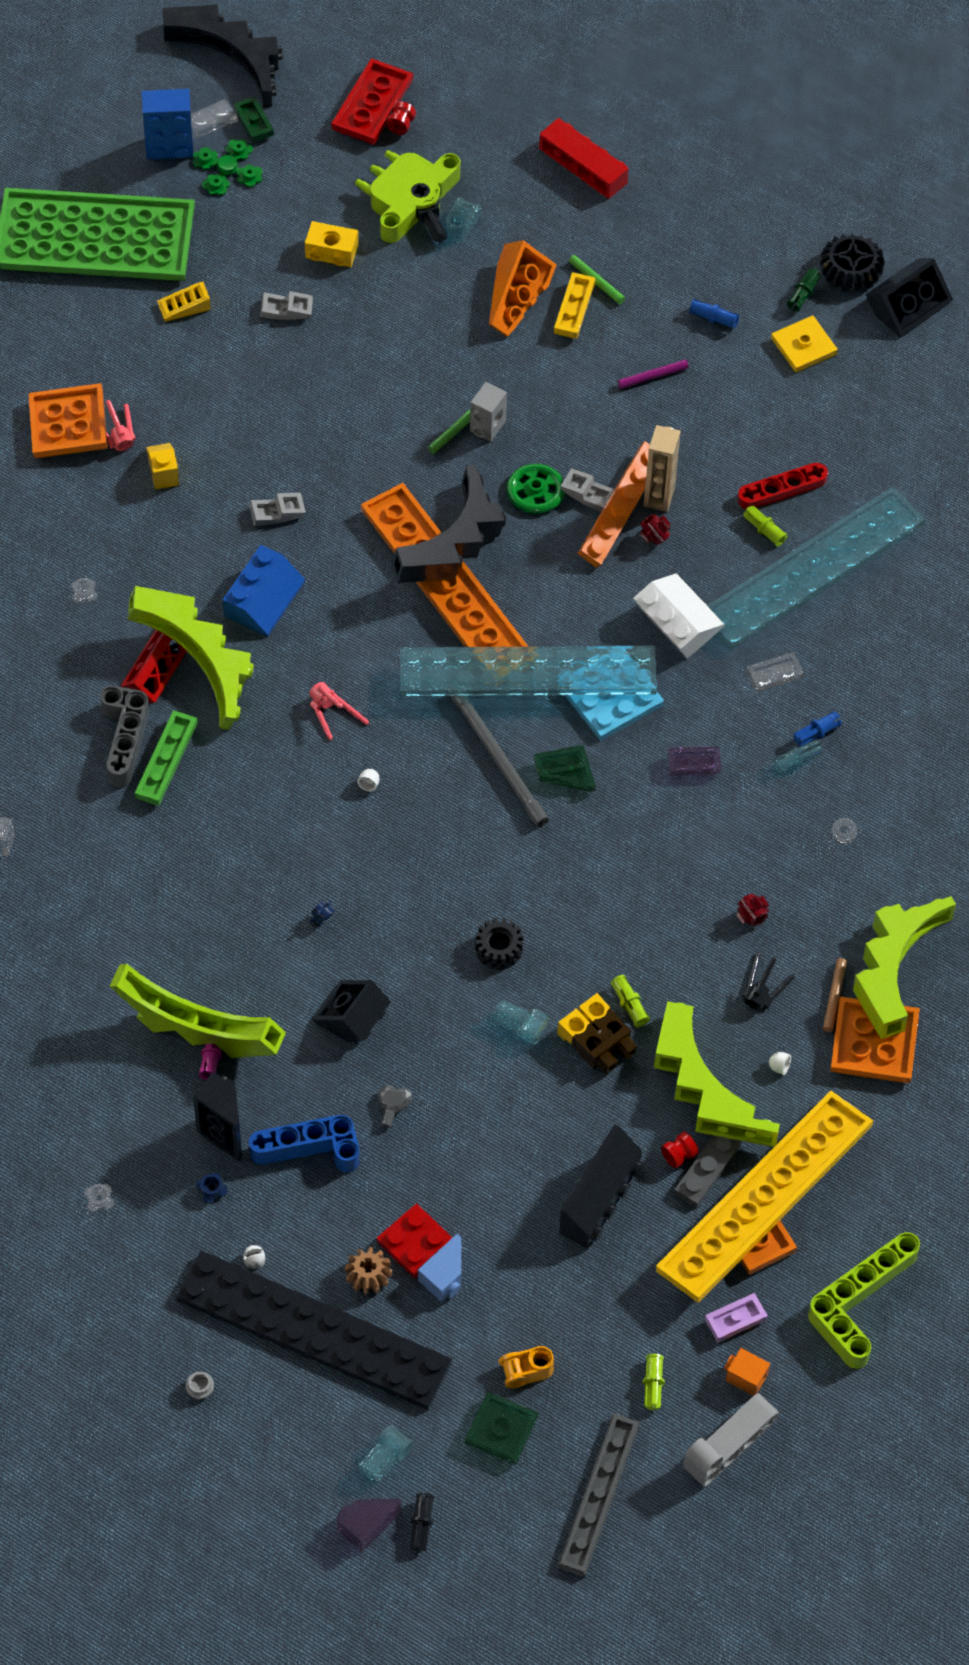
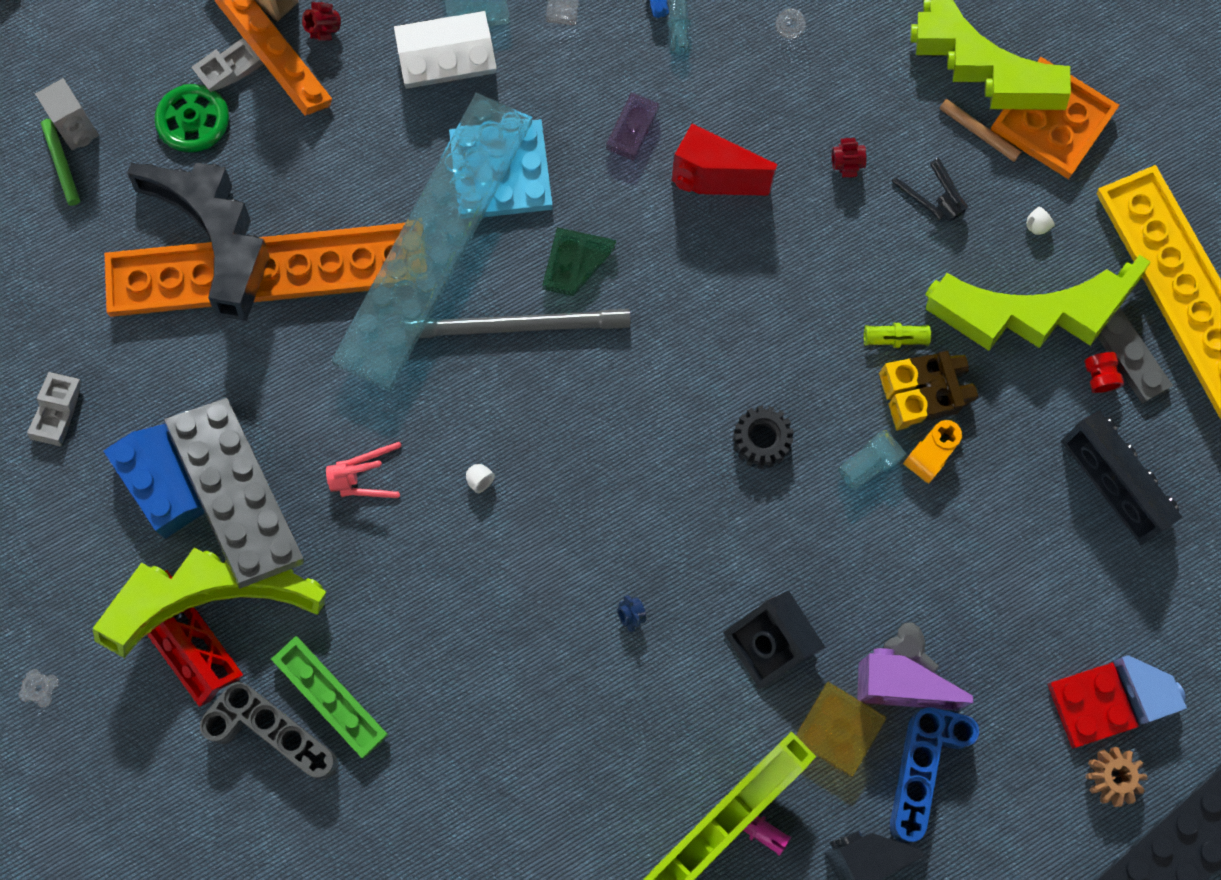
camera: 65 degrees left, 15 degrees up
(274, 633) = (233, 493): none -> plate
(308, 1078) = (840, 729): none -> clear yellow plate
(357, 1090) = (902, 682): none -> medium lavender slope
(549, 1058) = (931, 453): none -> light orange piece
(686, 820) = (720, 167): none -> red slope

